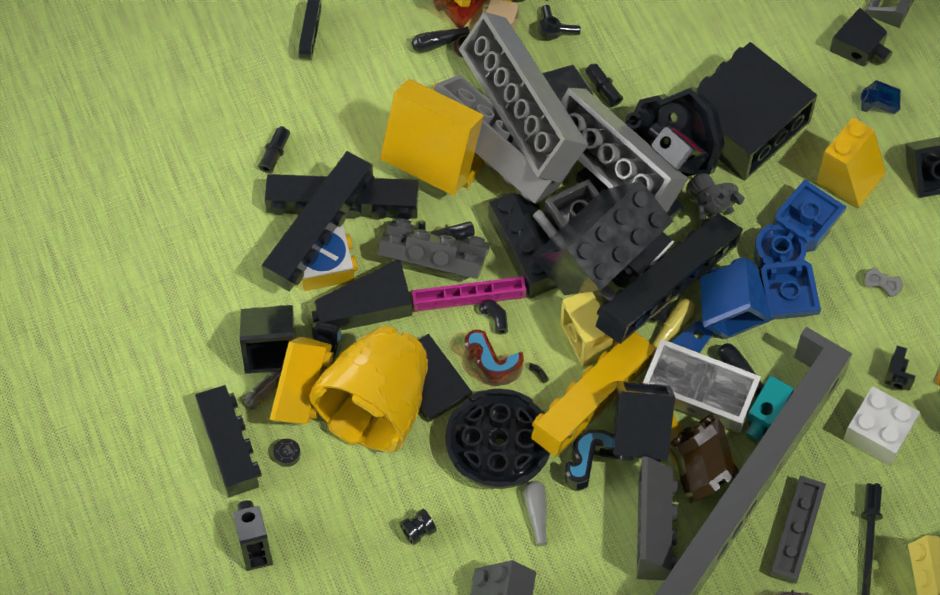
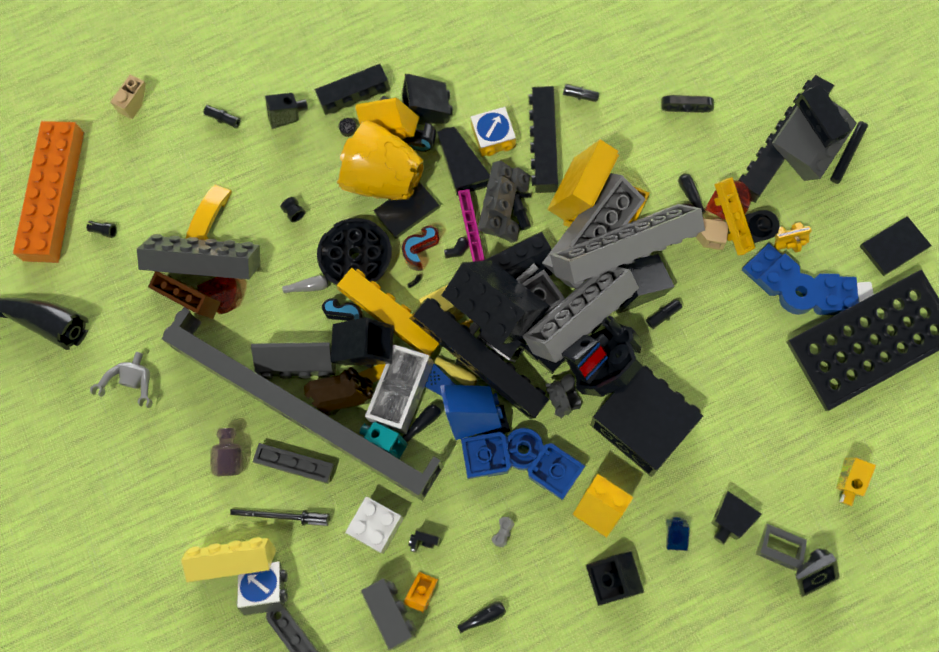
camera: 95 degrees right, 10 degrees up
(318, 221) = (512, 118): black brick -> none
(551, 27) = (712, 271): black piece -> none

